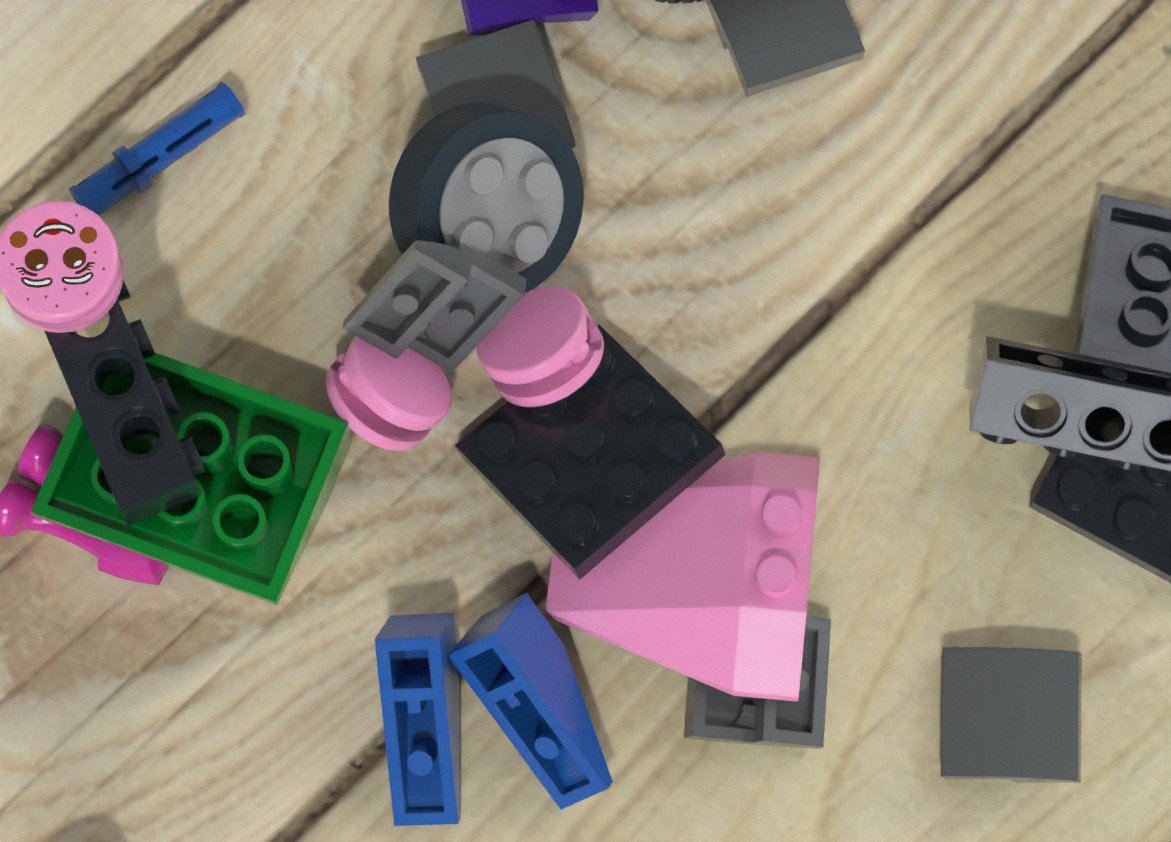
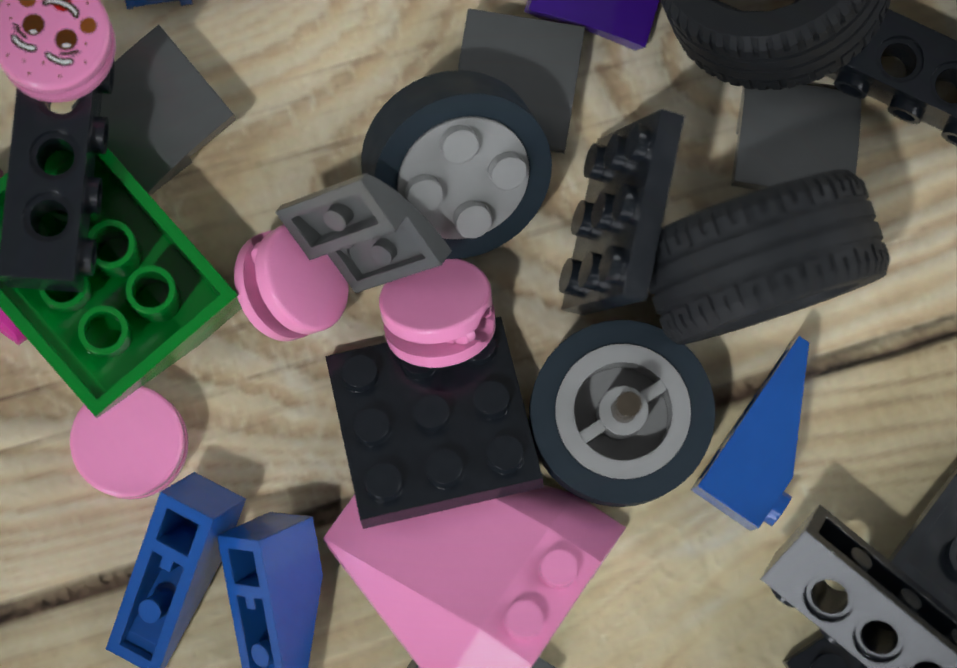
camera: 25 degrees right, 5 degrees up
(179, 293) = (160, 111): none -> dark grey slope
(318, 624) = (131, 447): none -> bright pink head
(664, 168) = (621, 215): none -> black plate
(760, 352) = (621, 413): none -> wheel
(815, 136) = (766, 255): none -> black tyre
(905, 324) = (759, 452): none -> blue slope

